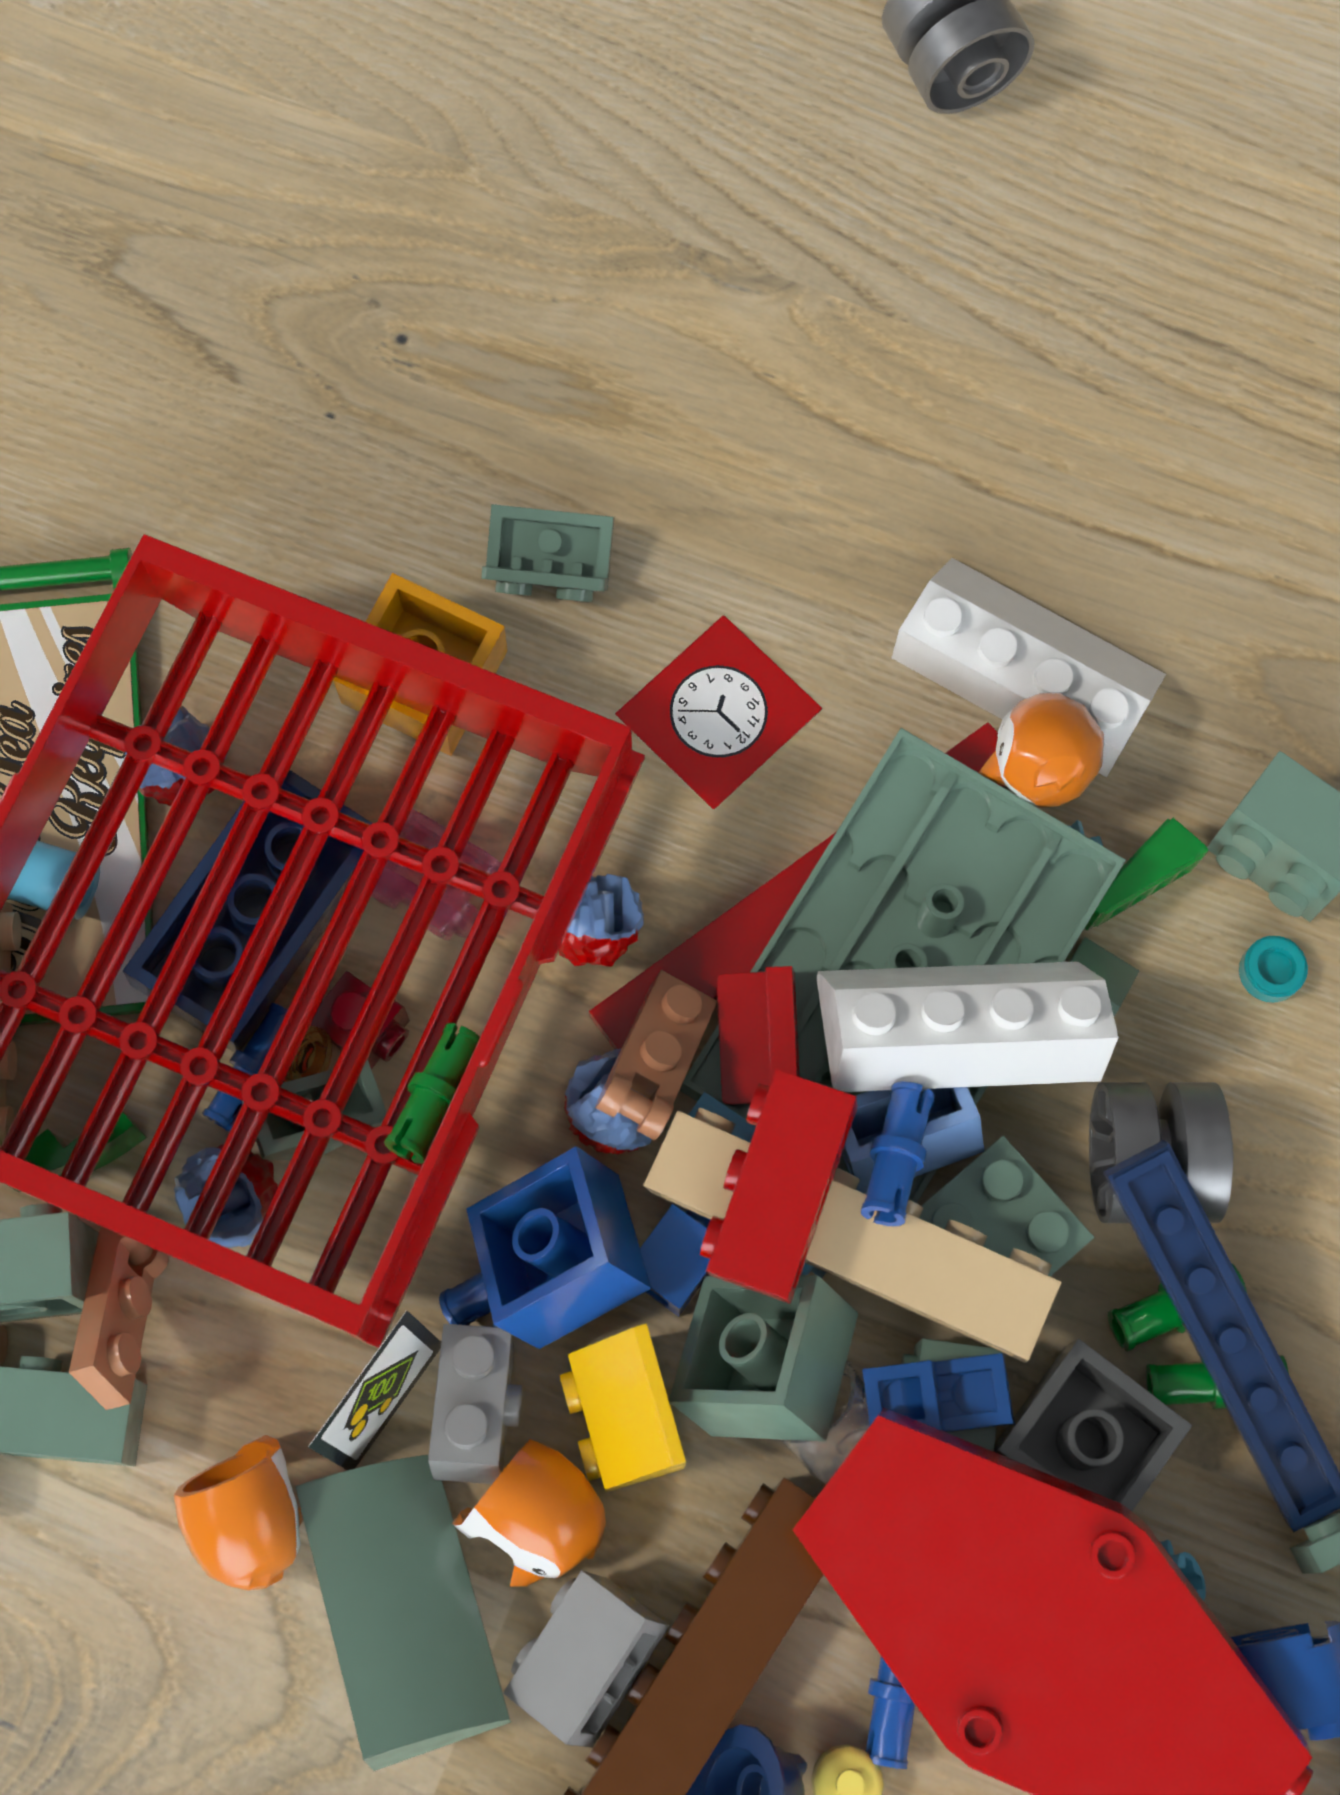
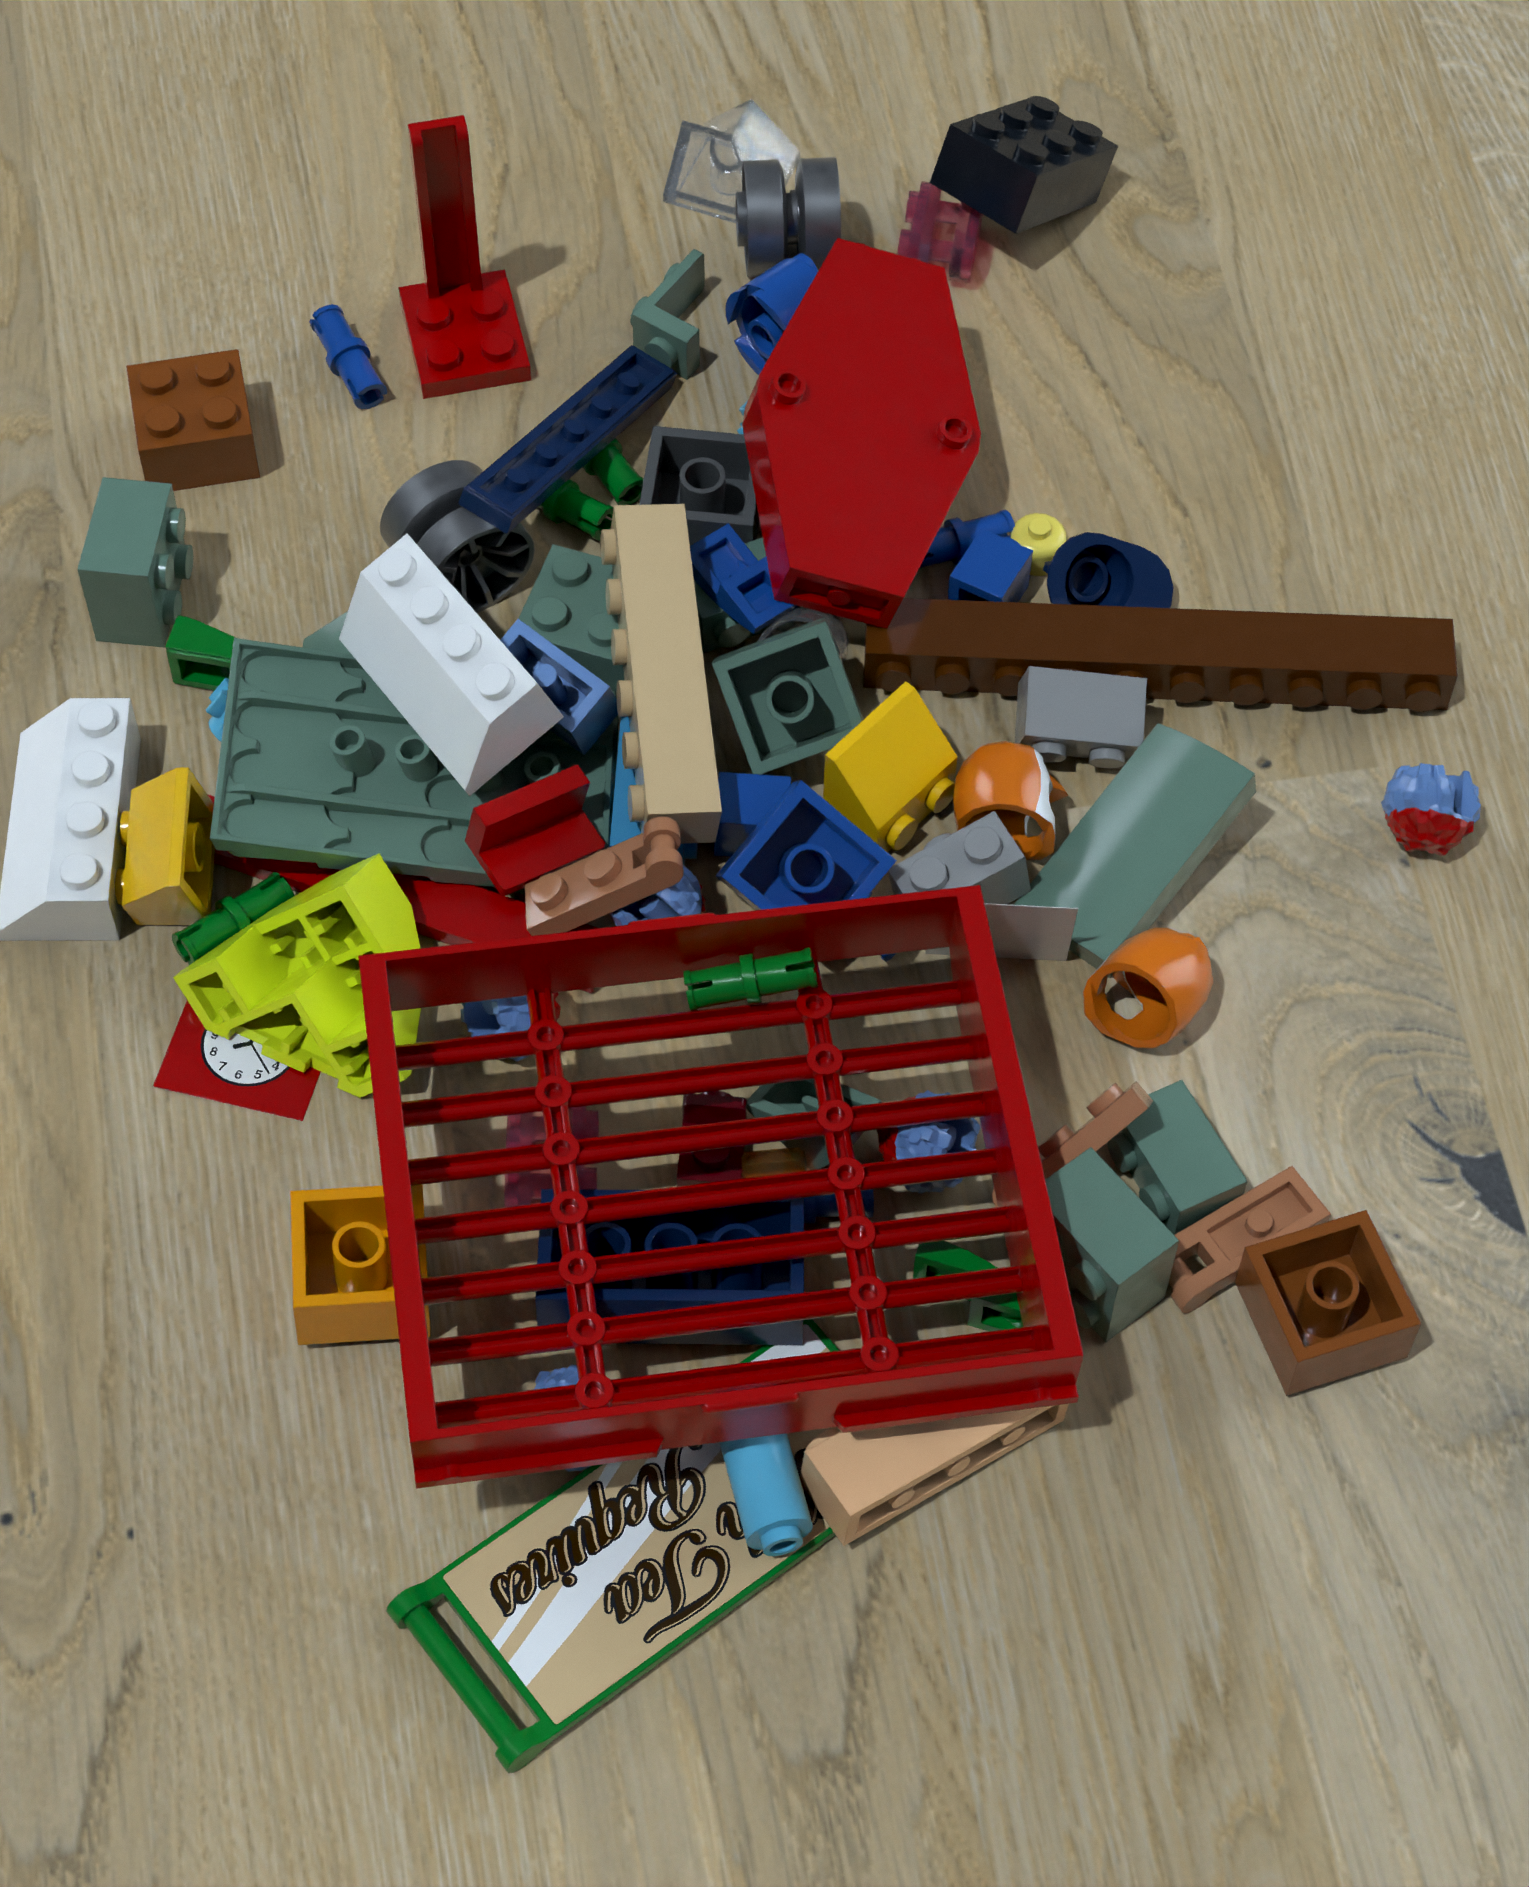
camera: 120 degrees left, 15 degrees down
(548, 550) = (181, 1236): sand green bracket -> none
(736, 789) = (298, 978): none -> neon yellow brick
(779, 1185) = (665, 695): red brick -> none
(822, 1691) = (991, 570): none -> blue brick
(842, 743) = (230, 917): none -> green pin
(897, 1154) = (586, 644): blue pin -> none
(928, 701) = (167, 851): none -> yellow slope
(1047, 750) = (164, 729): orange piece -> none
(1273, 969) = (246, 558): teal tile -> none

